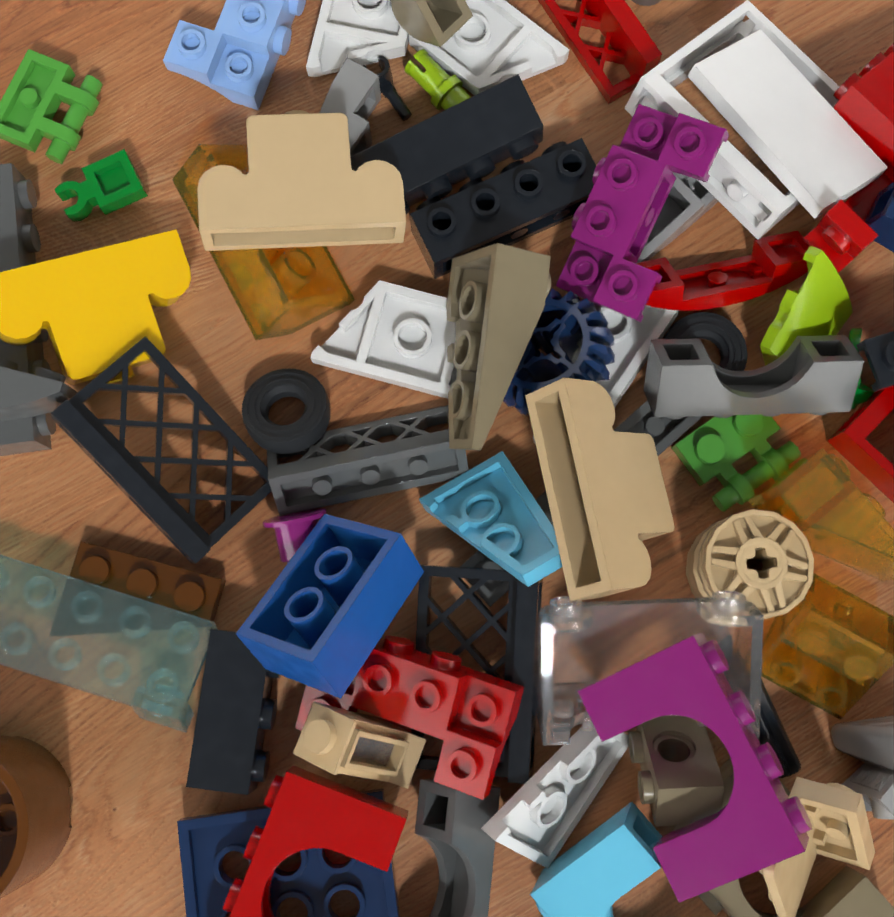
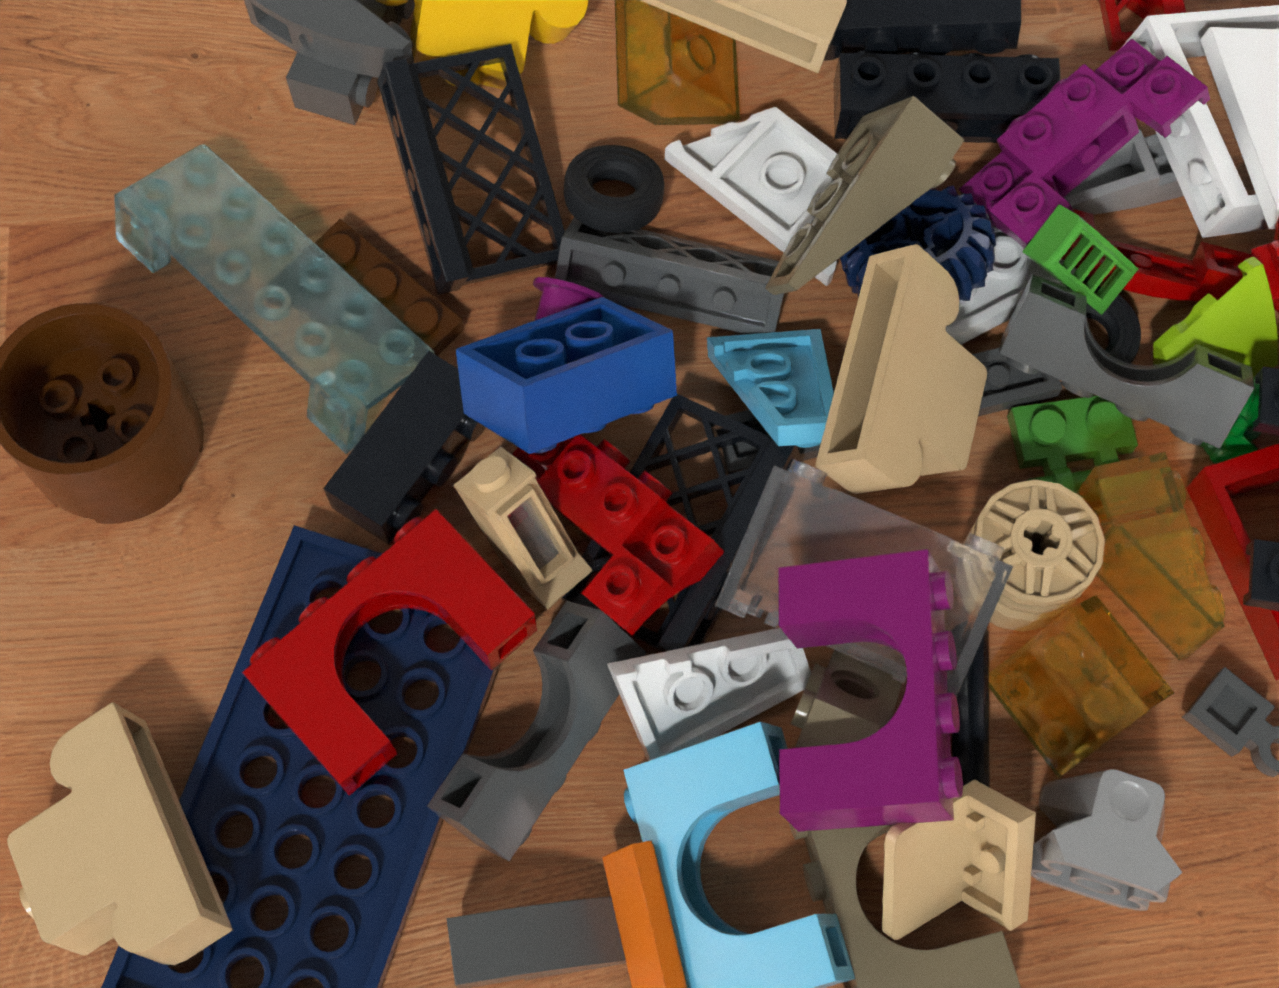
camera: 25 degrees right, 10 degrees down
(679, 310) = (1057, 237): none -> bright green slope

